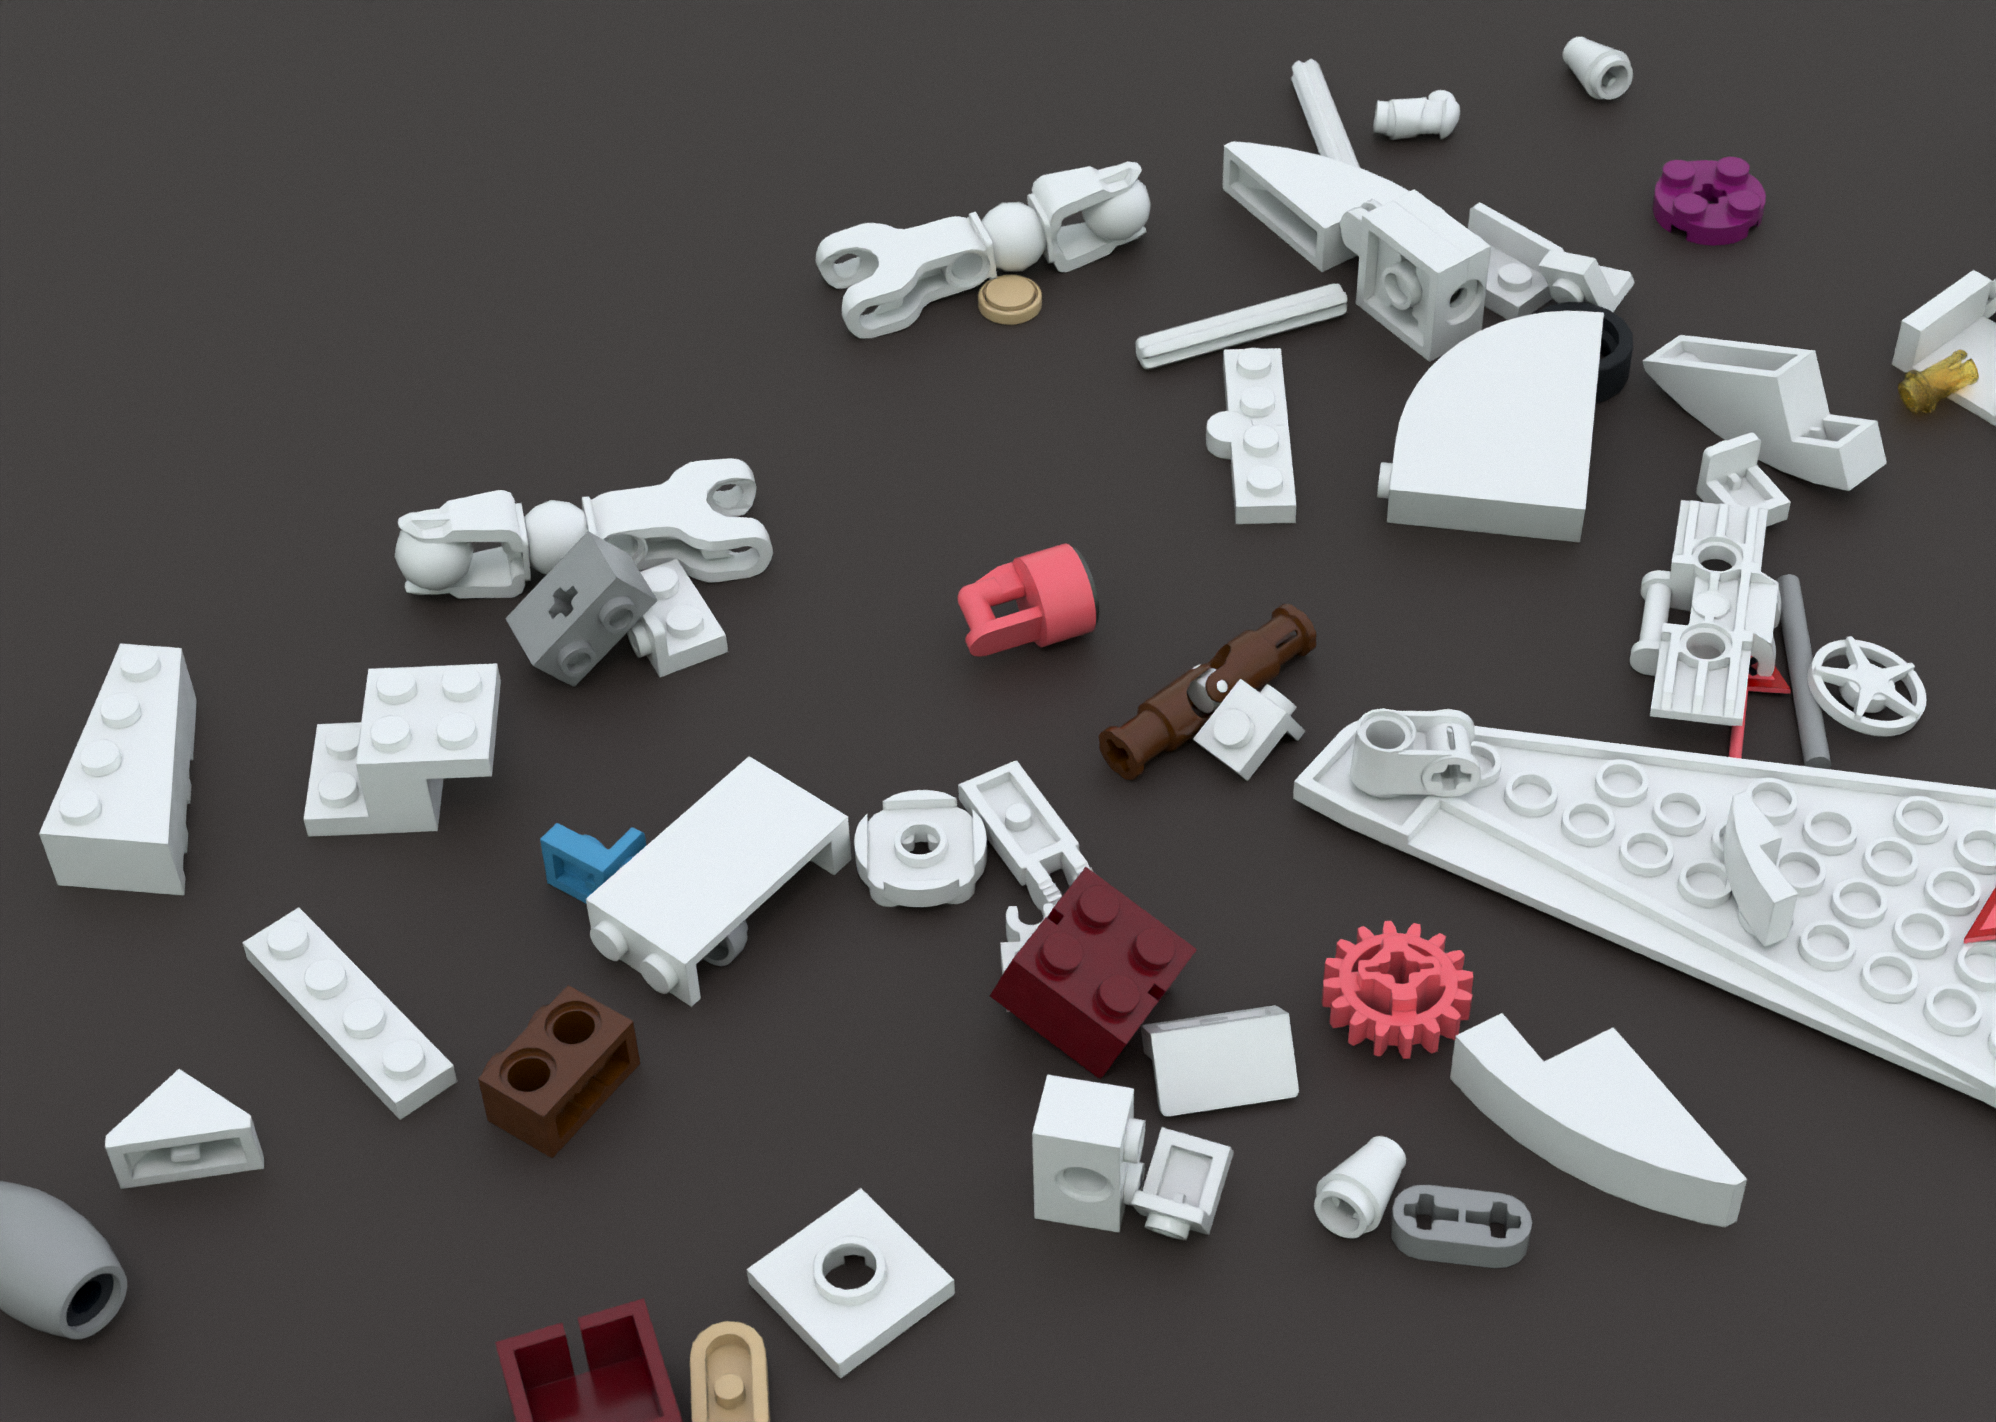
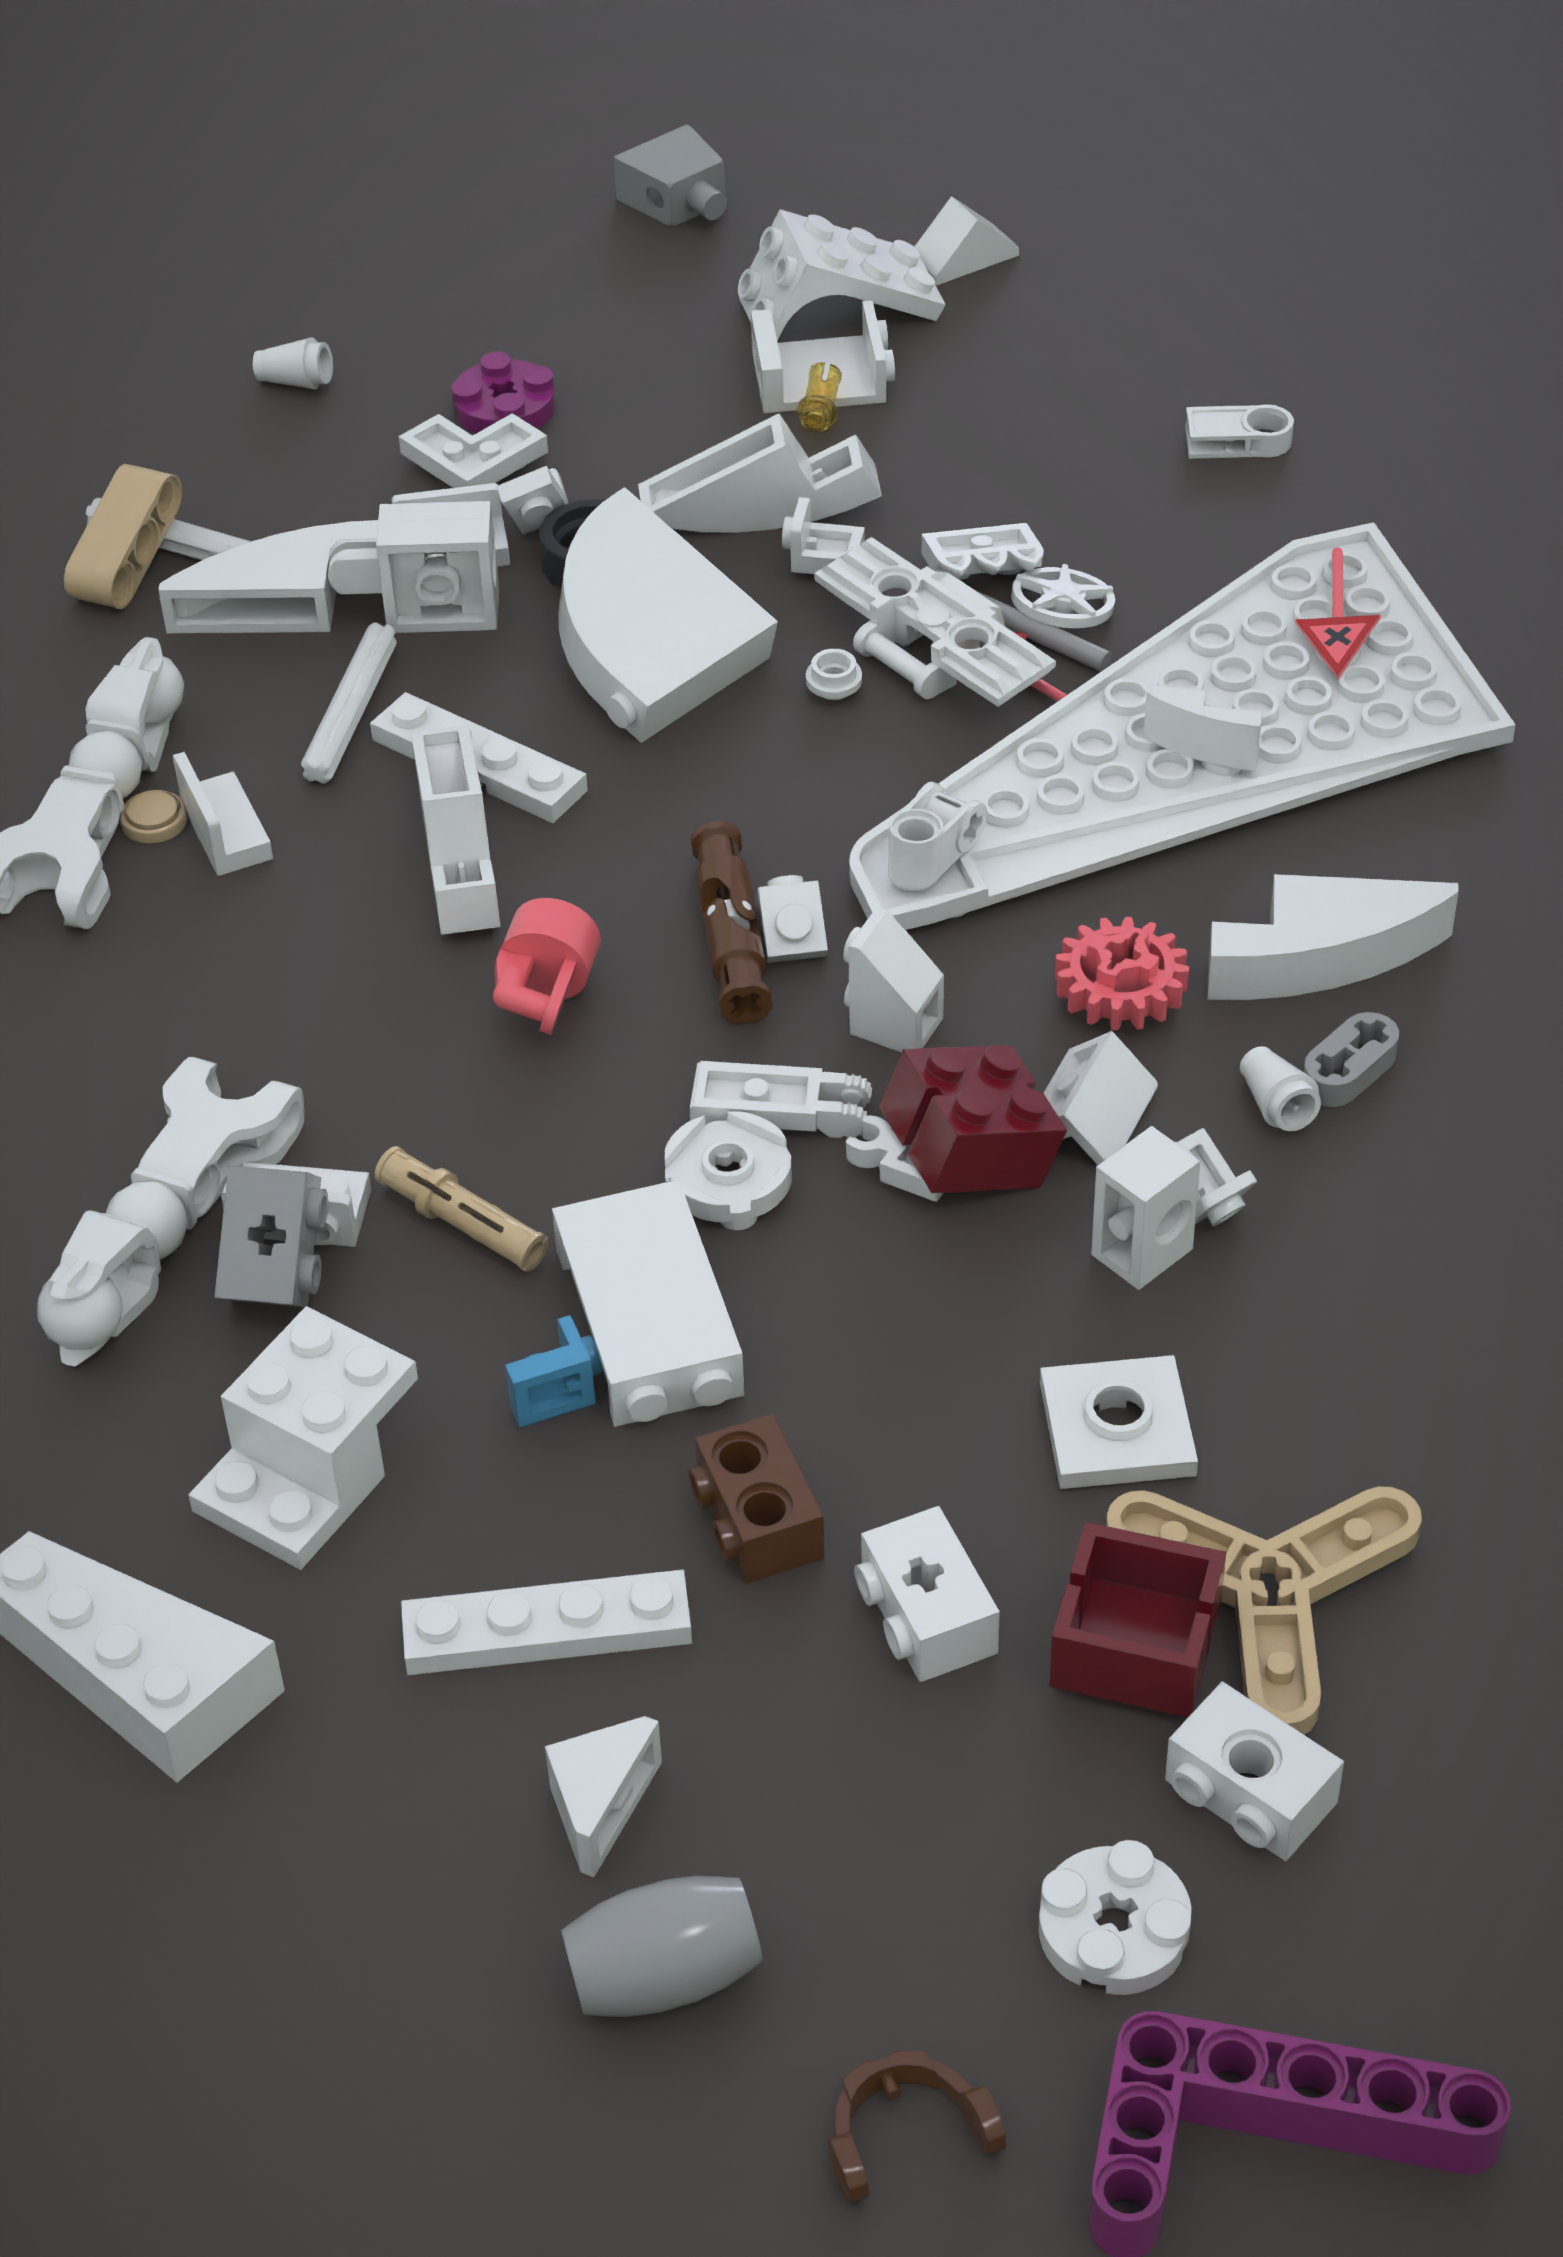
camera: 55 degrees left, 0 degrees up
(536, 1244) = (928, 1594): none -> white brick
(738, 690) = (409, 1175): none -> tan pin
(1031, 329) = (222, 819): none -> white panel
(1140, 460) = (455, 830): none -> white slope
(1207, 830) = (892, 985): none -> white slope
(1275, 94) = (123, 536): none -> tan beam
(1417, 116) = (230, 484): white arm -> none
(1588, 590) = (833, 674): none -> white plate
(1602, 228) = (474, 459): none -> white plate
(1855, 596) = (983, 550): none -> white plate

